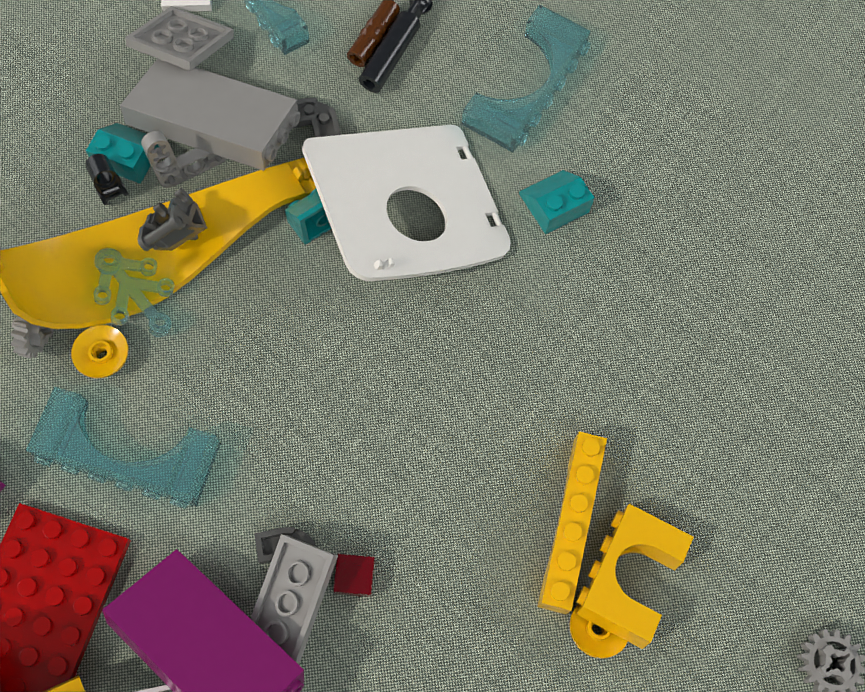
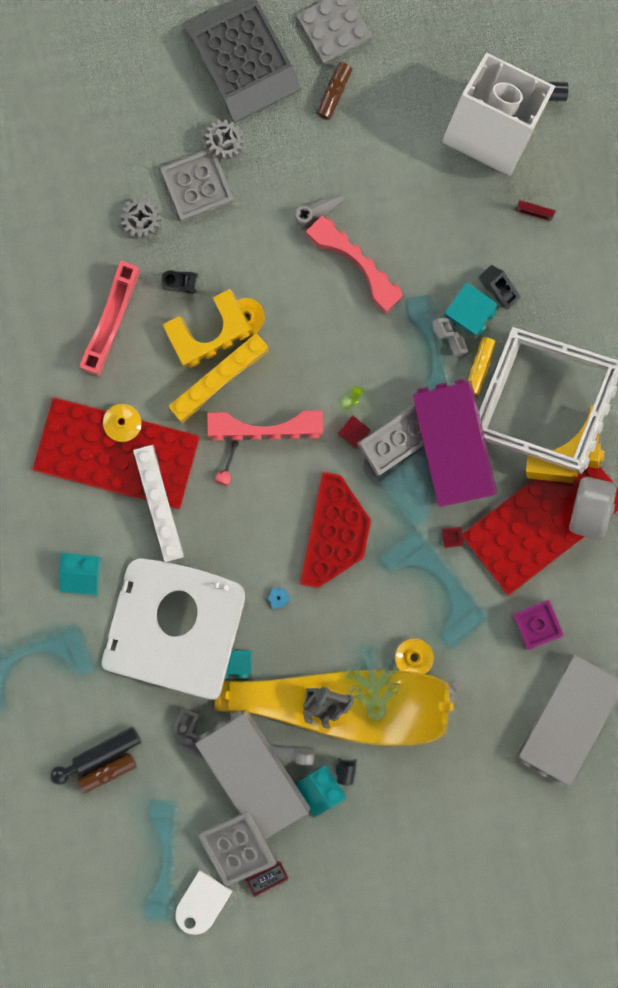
camera: 145 degrees left, 15 degrees up
(118, 47) = (267, 879): none -> tile
(137, 527) = (452, 537): none -> dark red plate
(231, 552) = (411, 488): none -> clear light blue plate
(292, 435) = (336, 533): none -> red plate
(312, 310) = (275, 592): none -> dark azure plant
(385, 630) = (349, 401): none -> clear neon green piece
(477, 408) = (223, 477): none -> hinge
(520, 469) = (225, 426): none -> coral arch
(566, 345) = (158, 503): none -> white arch
(620, 354) = (82, 452): none -> red plate
(637, 397) = (124, 432): none -> yellow dish
(711, 615) = (181, 281): none -> black piece
(775, 546) = (115, 308): none -> coral arch

